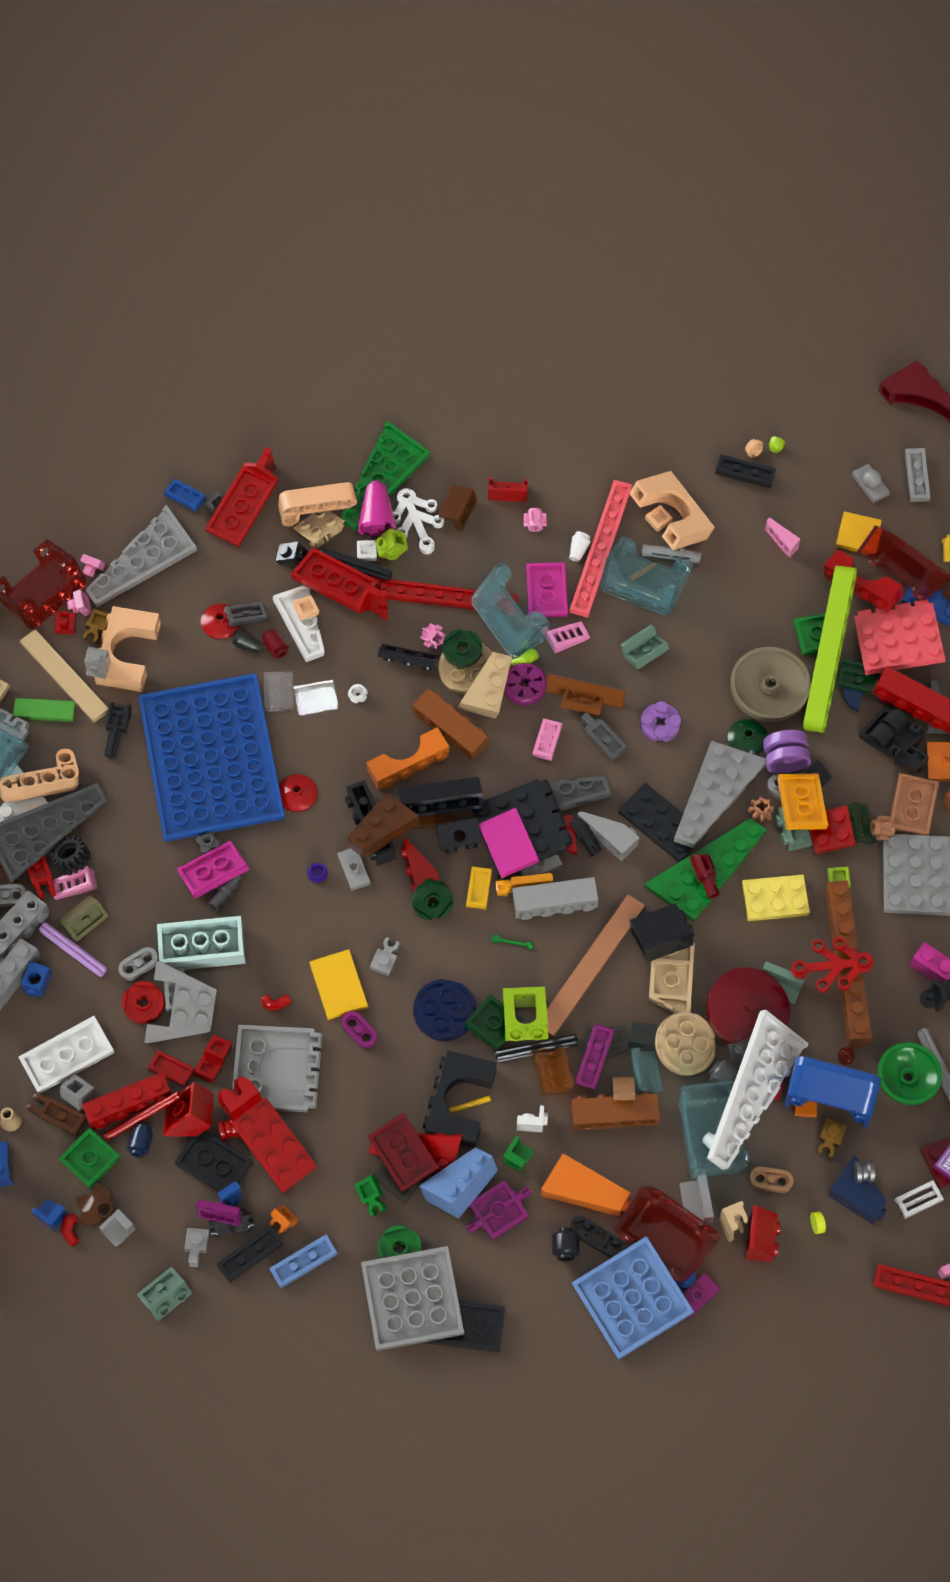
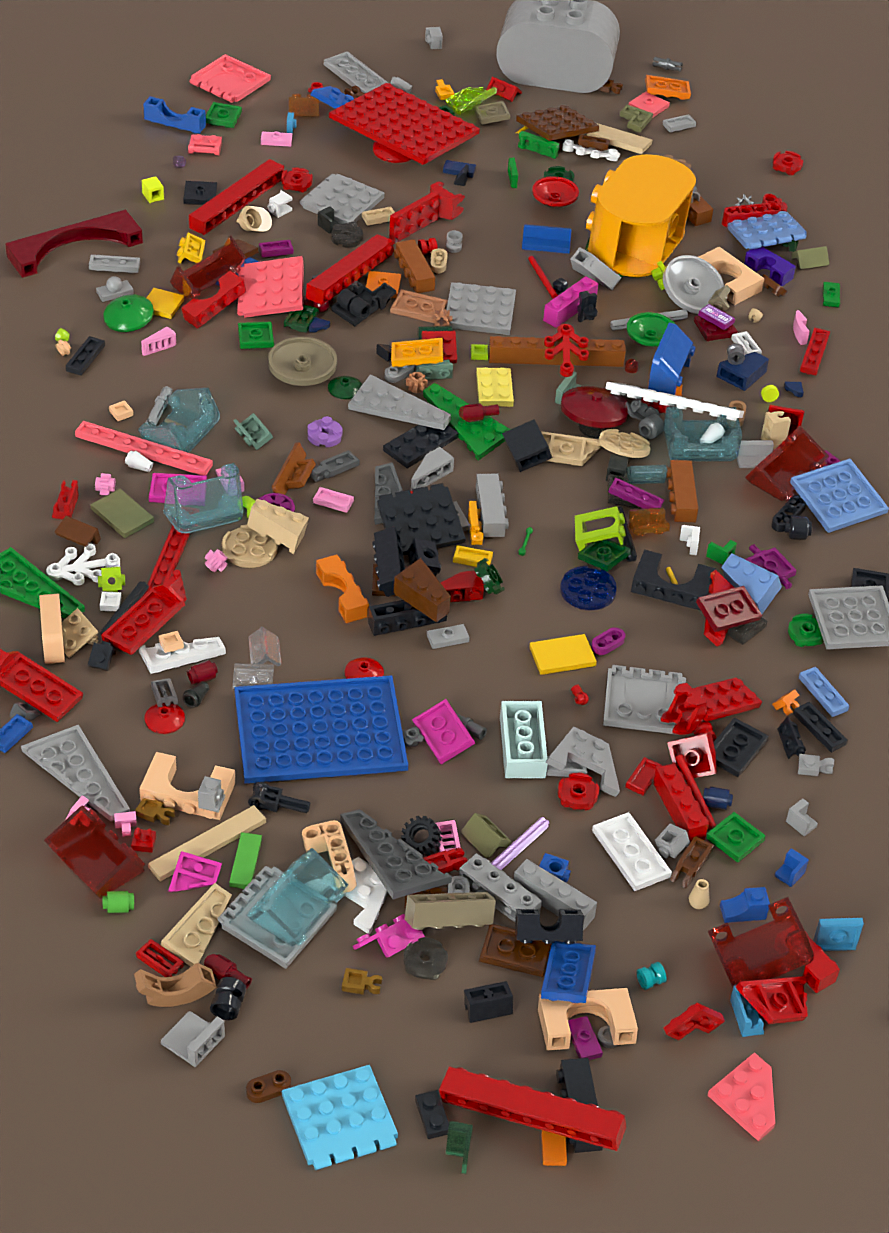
camera: 90 degrees left, 20 degrees down
(23, 667) = (194, 872): none -> dark pink wing
(67, 1225) = (812, 855): red arm -> none
(94, 1205) = (782, 835): reddish brown plate -> none
(137, 963) = (541, 795): light grey plate -> none
(164, 1293) = (860, 787): sand green bracket -> none
(213, 1059) = (630, 743): red slope -> none
(219, 1212) = (791, 731): magenta plate -> none
(231, 1194) = (774, 728): blue plate -> none
(317, 872) = (450, 659): dark purple plate -> none
(357, 688) = (266, 619): white plate -> none
(369, 1192) = (760, 643): green plate -> none
(376, 511) = (74, 580): dark pink cone -> none
(385, 959) = (539, 622): light grey plate -> none
(408, 656) = (233, 580): black plate -> none
(454, 727) = (302, 562): dark orange brick -> none
(464, 638) = (234, 548): dark green plate -> none
(500, 542) = (122, 513): none -> olive tile
(508, 843) = (440, 521): dark pink tile -> none
(582, 1187) = (747, 515): orange slope -> none
(585, 836) = (432, 481): black axle -> none
(592, 963) = (545, 492): nougat tile -> none
(623, 1088) = (667, 475): medium nougat slope -> none
(668, 490) = (98, 399): light nougat arch -> none
(787, 752) = (370, 355): medium lavender wheel -> none
(830, 502) = (128, 313): none -> green dish
(830, 649) = (274, 319): lime beam -> none
(831, 1136) = (697, 381): pearl gold plate -> none
(840, 1257) = (794, 387): none -> dark blue tile

